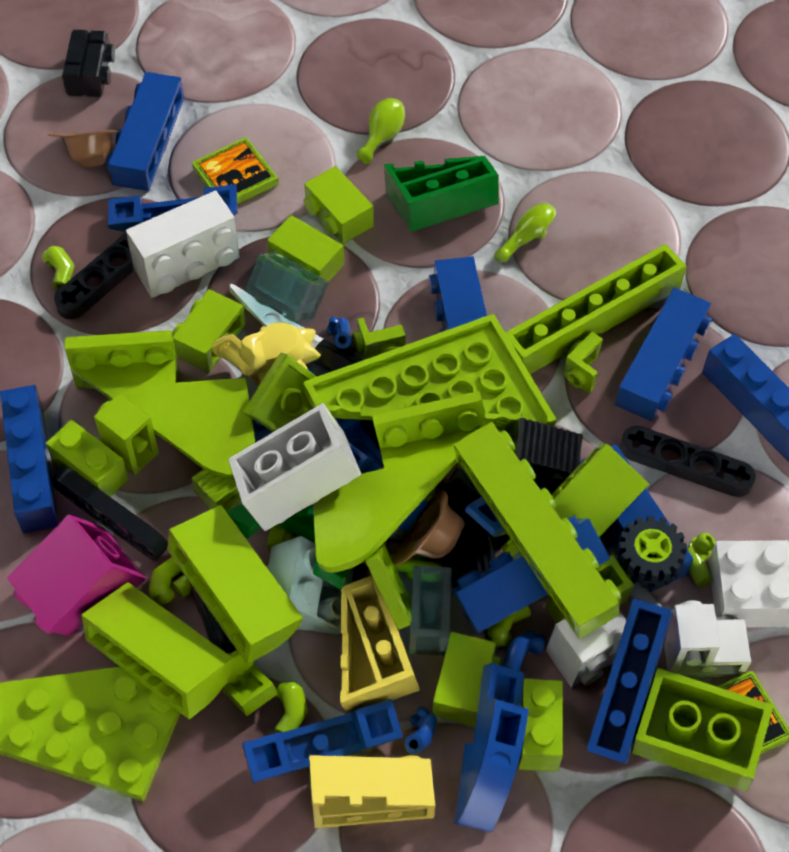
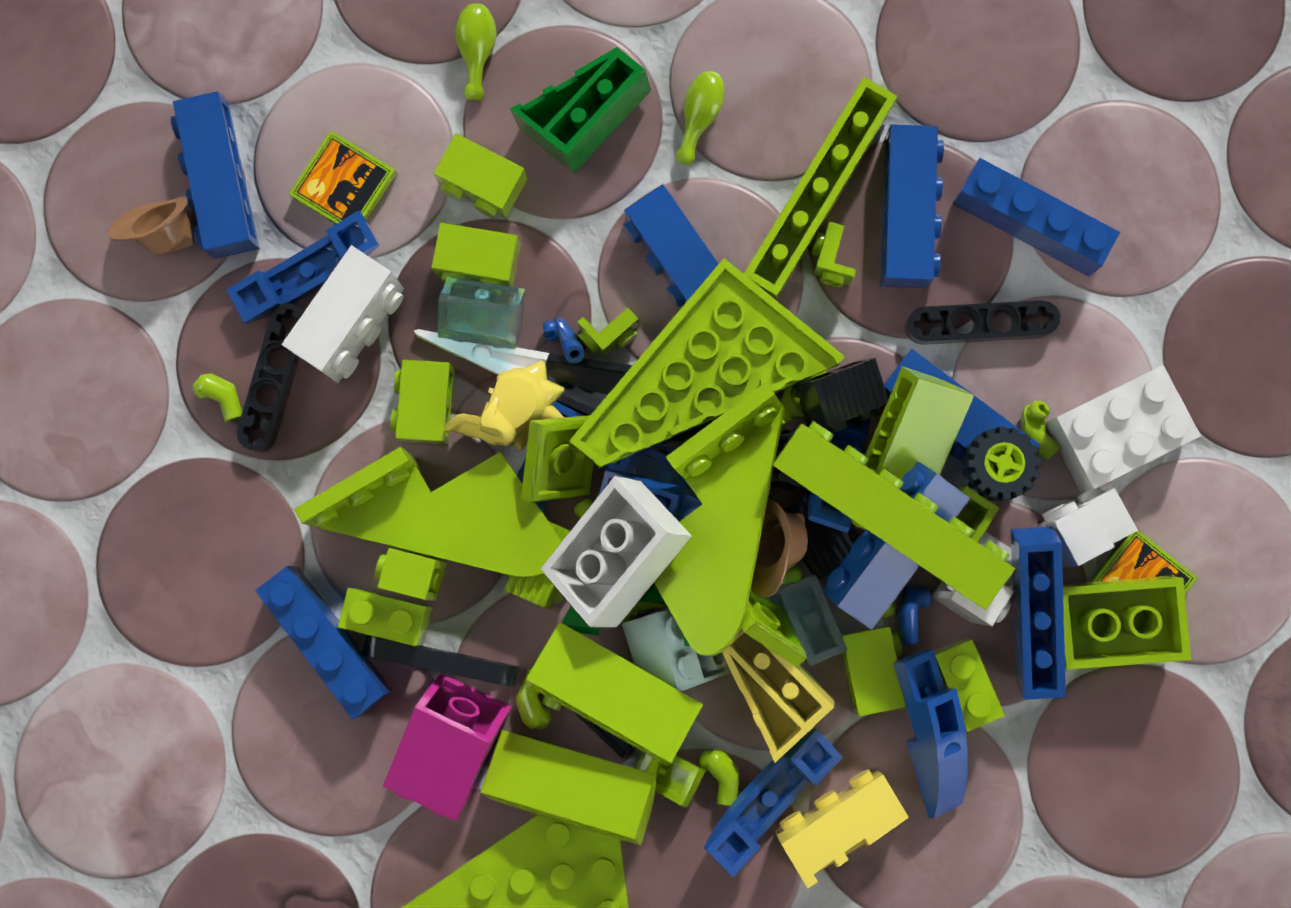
camera: 20 degrees left, 25 degrees up
(87, 63) = (95, 112): black brick -> none
(426, 725) = (858, 742): blue arm -> none

